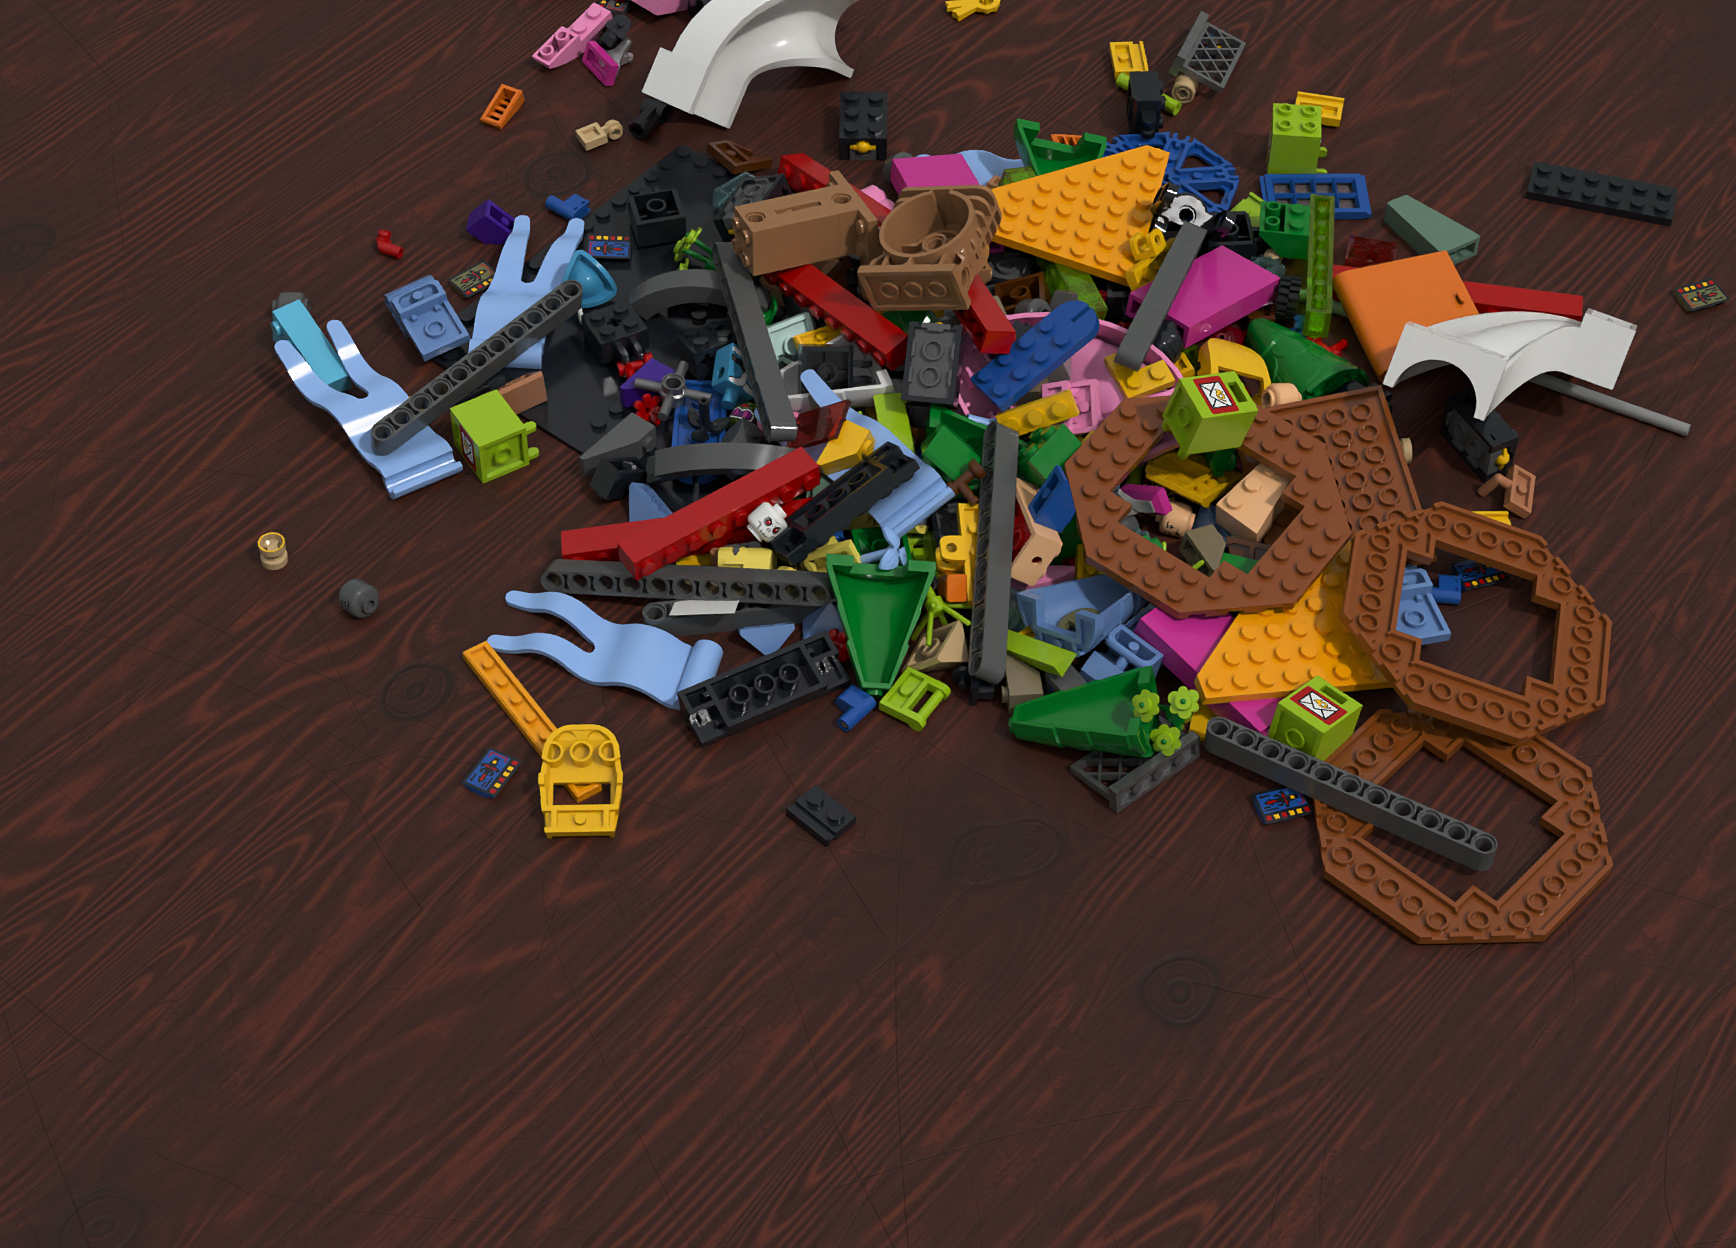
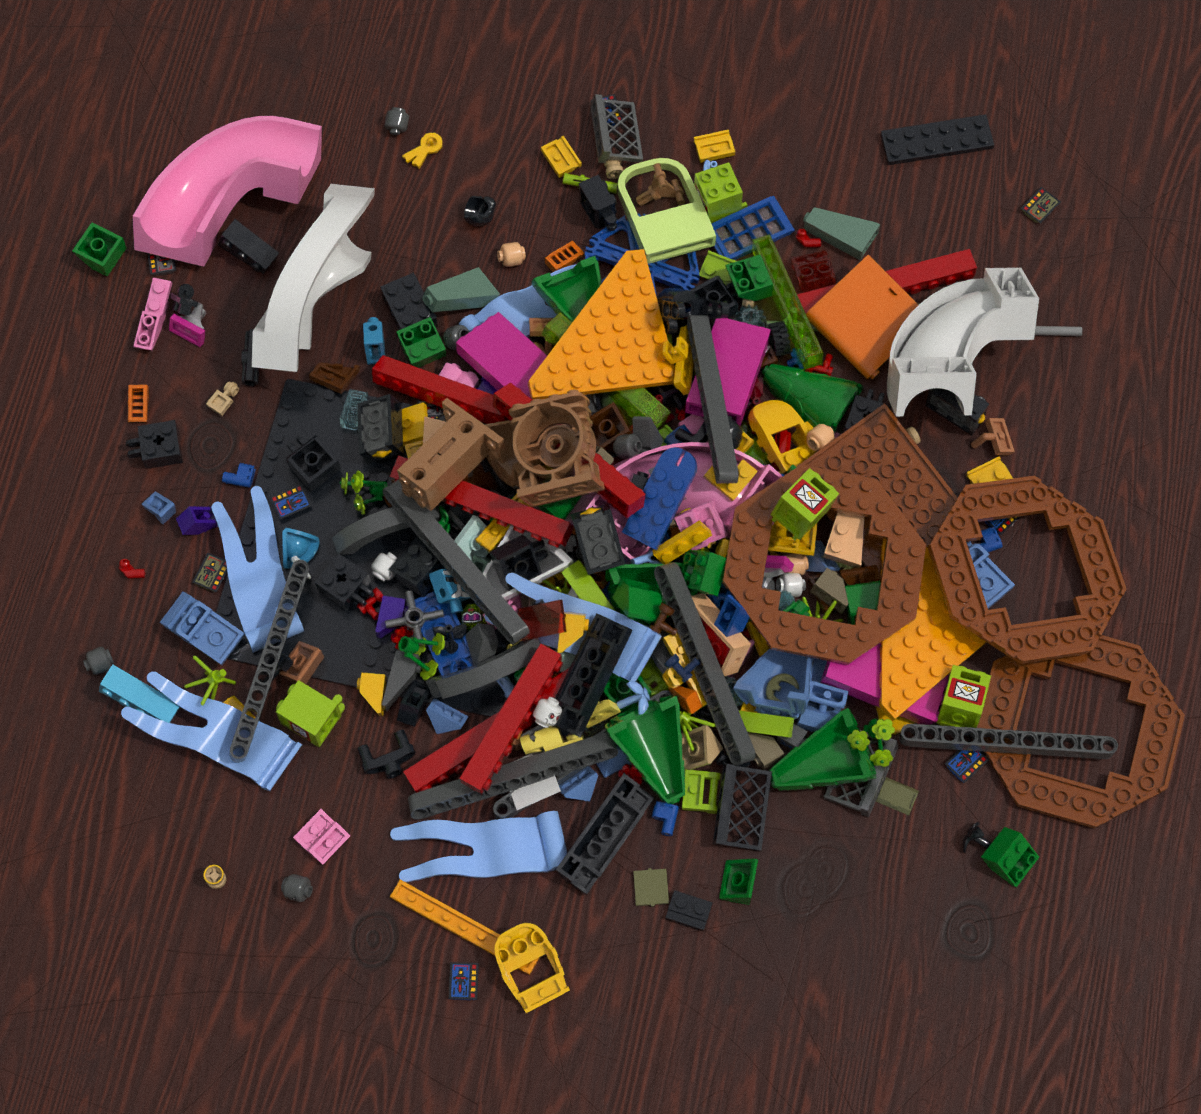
camera: 25 degrees left, 20 degrees up
(404, 361) = (213, 678): none -> lime plant
(423, 564) = (321, 836): none -> bright pink slope
(460, 202) = (160, 507): none -> medium blue slope
(496, 145) = (151, 451): none -> black hinge
(551, 522) = (388, 763): none -> black connector
(577, 440) = (373, 689): none -> yellow slope
(648, 407) = (411, 646): none -> plant
(667, 340) = (381, 566): none -> white head
(788, 773) = (651, 887): none -> olive piece
(802, 133) = (373, 336): none -> dark azure torso
(856, 157) = (421, 343): none -> green slope
(907, 809) = (738, 880): none -> green slope
(928, 126) = (460, 292): none -> sand green slope
(932, 721) = (725, 803): none -> black fence
(953, 528) = (684, 672): none -> dark blue piece
(1001, 71) = (479, 210): none -> black hair
(1007, 118) = (511, 254): none -> light nougat head
(1163, 531) = (792, 583): none -> white head
(1167, 806) = (897, 796): none -> olive piece
(1220, 157) = (670, 230): none -> yellowish green window
(1228, 119) = (661, 188): none -> medium nougat axle
(1244, 881) = (975, 834): none -> black plant
(1282, 924) = (1010, 856): none -> green slope
(1380, 230) = (807, 242): none -> red arm

